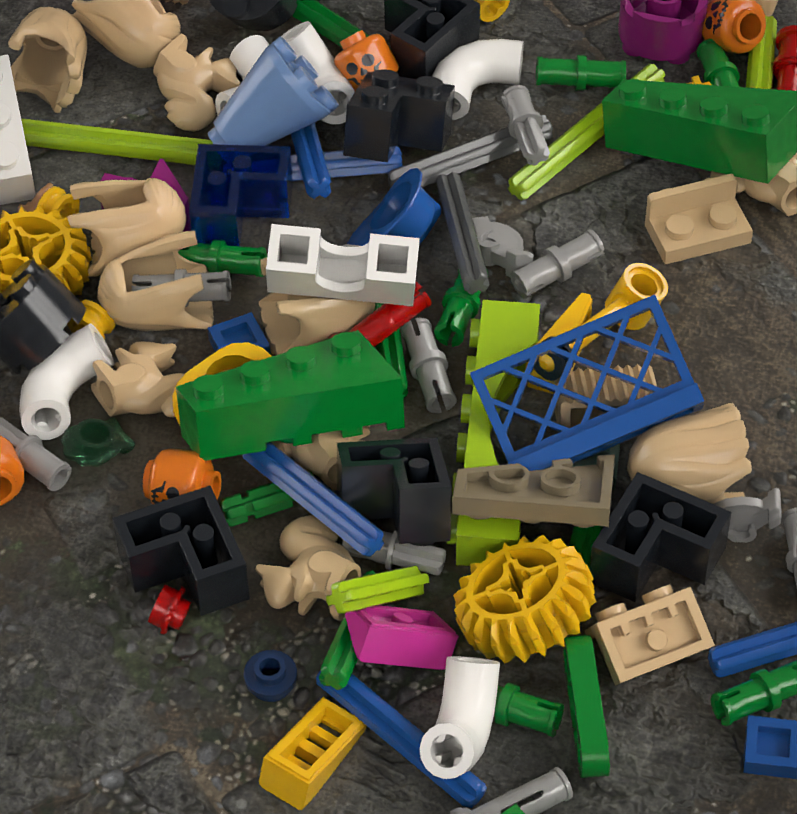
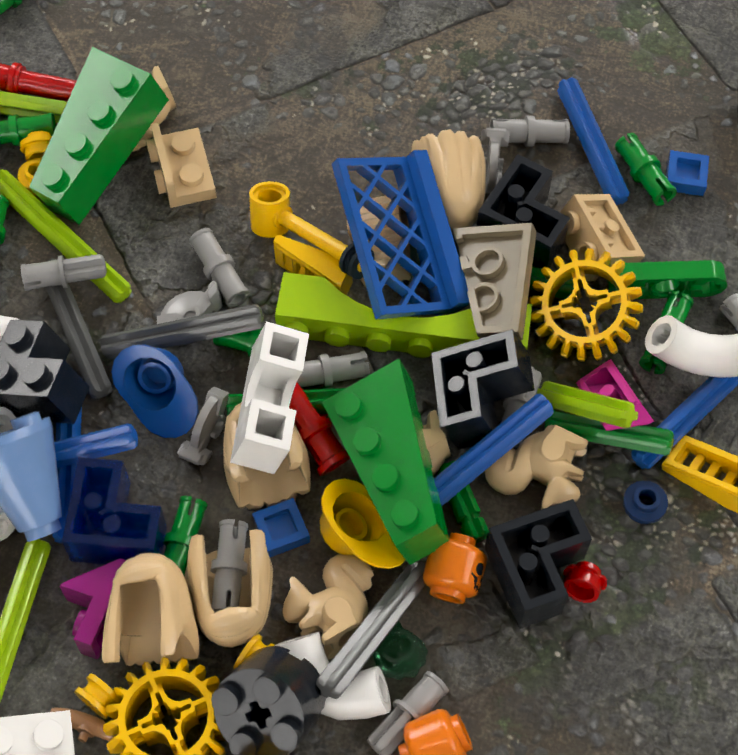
camera: 90 degrees left, 10 degrees up
(102, 400) = (371, 632): none -> axle

